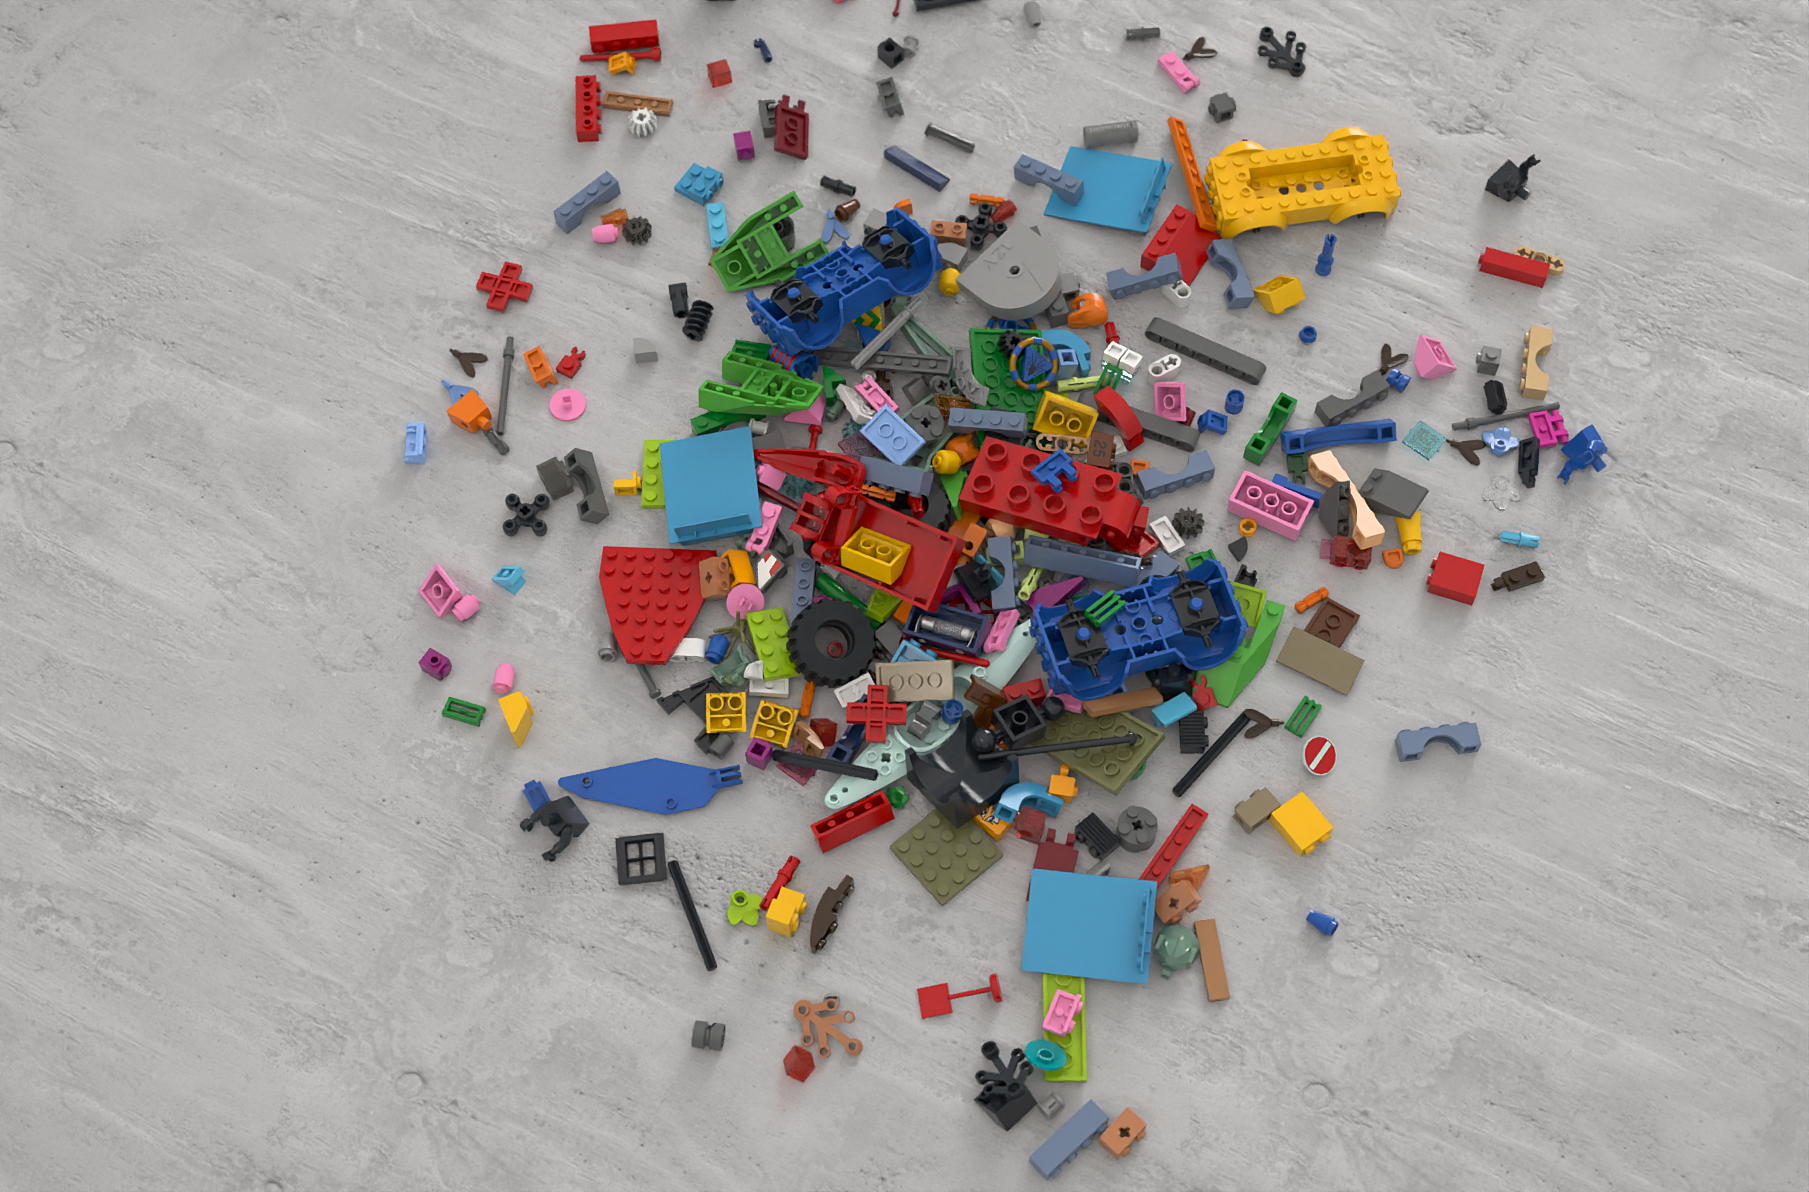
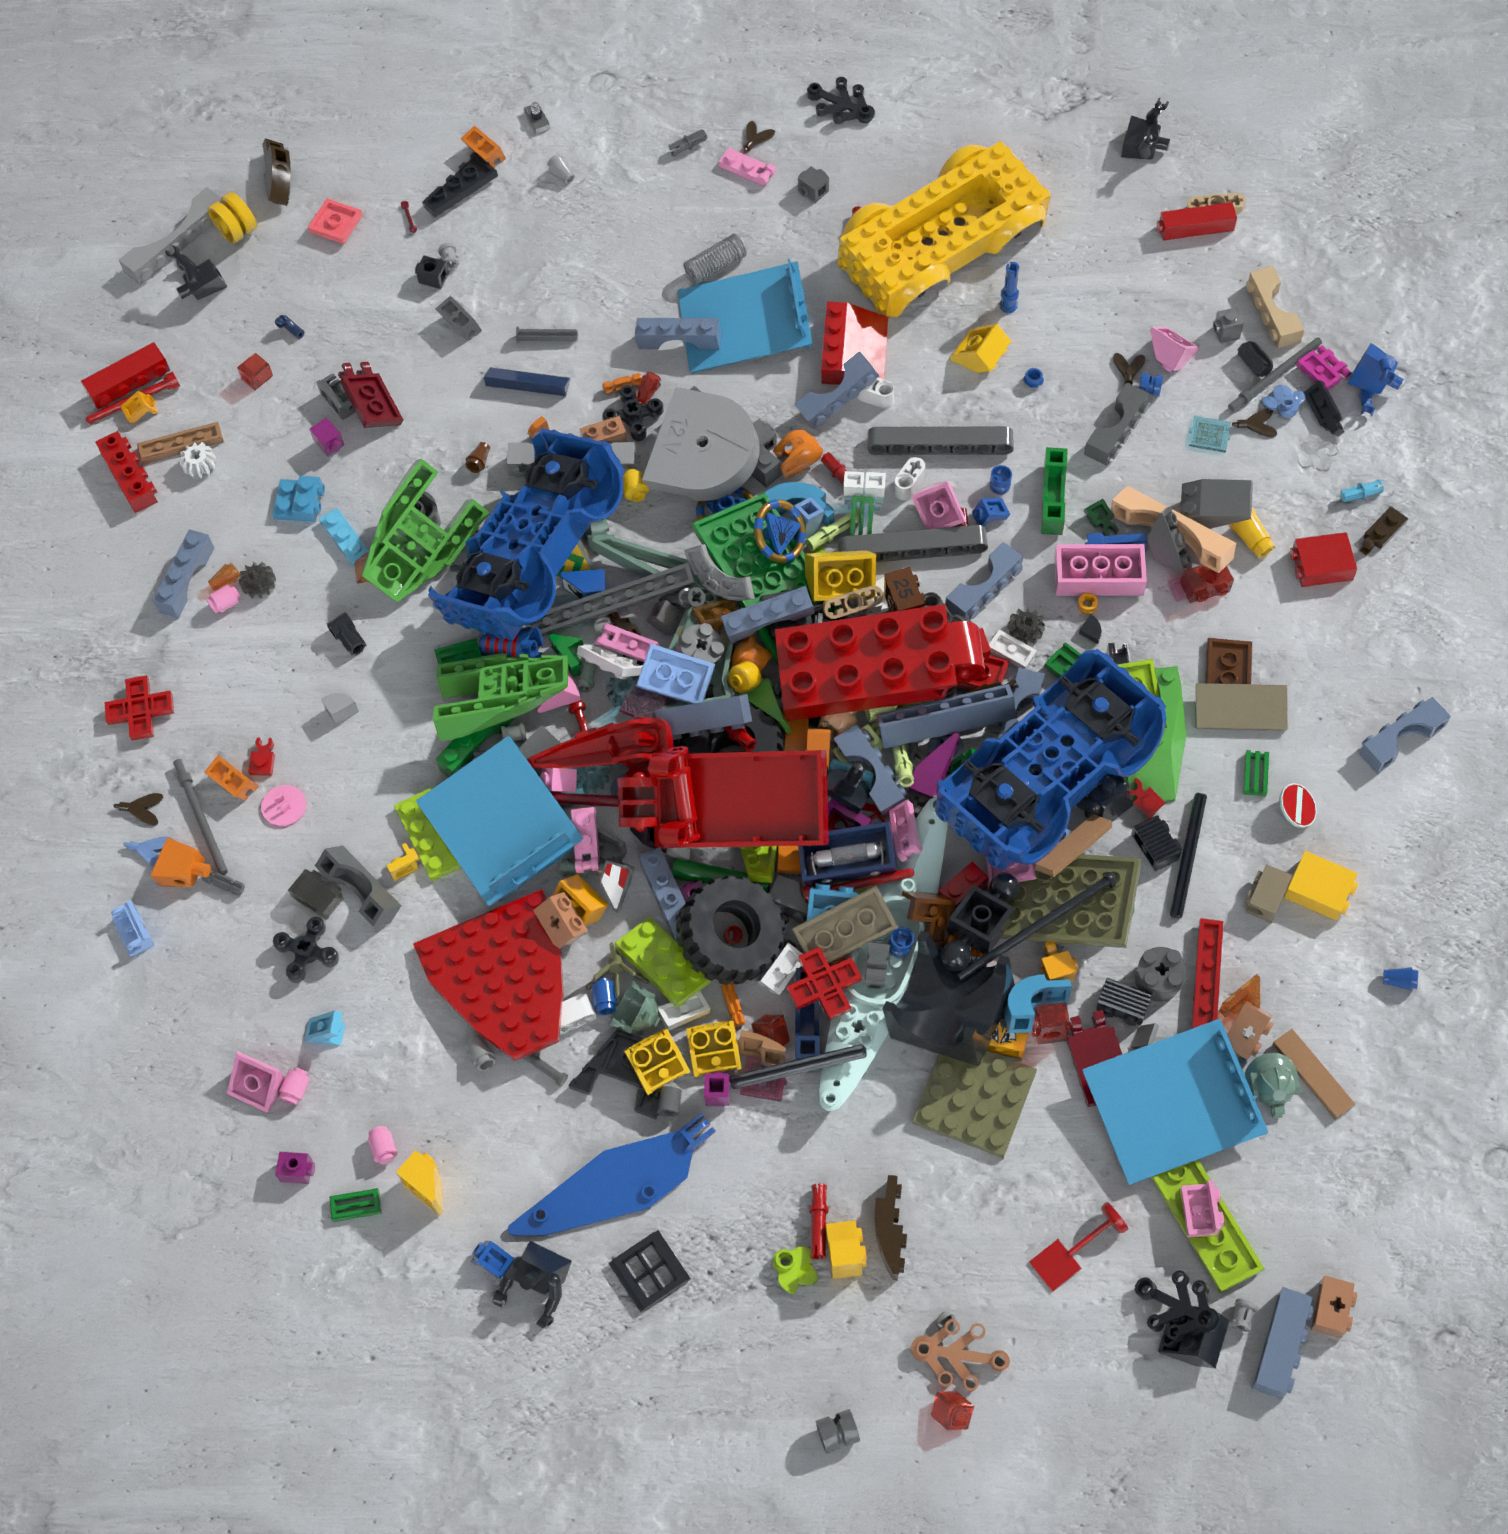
camera: 25 degrees left, 0 degrees up
(692, 915) = (740, 1304): black axle -> none
(697, 320) = (381, 647): black piece -> none
(745, 599) = (606, 927): bright pink piece -> none
(754, 671) = (662, 1000): white tile -> none
(831, 226) = (471, 480): medium blue piece -> none
(838, 186) = (454, 436): black pin -> none
(852, 821) = (860, 1114): red brick -> none
(875, 555) = (732, 811): yellow slope -> none
(878, 493) = (696, 742): orange axle -> none
(897, 796) = (890, 1063): green plant -> none
(907, 312) = (612, 535): light grey axle -> none
(1008, 341) = (743, 520): black gear -> none
(1045, 1055) = (1210, 1264): teal dish -> none
(1053, 466) = (870, 630): blue plate -> none
(1115, 599) = (1016, 739): green tile -> none
(1121, 415) = (897, 543): red arch -> none
(1138, 465) = (941, 589): orange tile -> none
(1173, 710) = (1126, 829): medium azure panel -> none
(1192, 174) = (823, 264): orange tile -> none
(1224, 256) = (905, 334): sand blue arch -> none
(1262, 725) = (1221, 801): dark brown piece -> none
(1311, 600) = (1194, 648): orange axle -> none
(1360, 432) = (1100, 482): blue arch -> none
(1393, 558) = (1249, 567): orange tile -> none

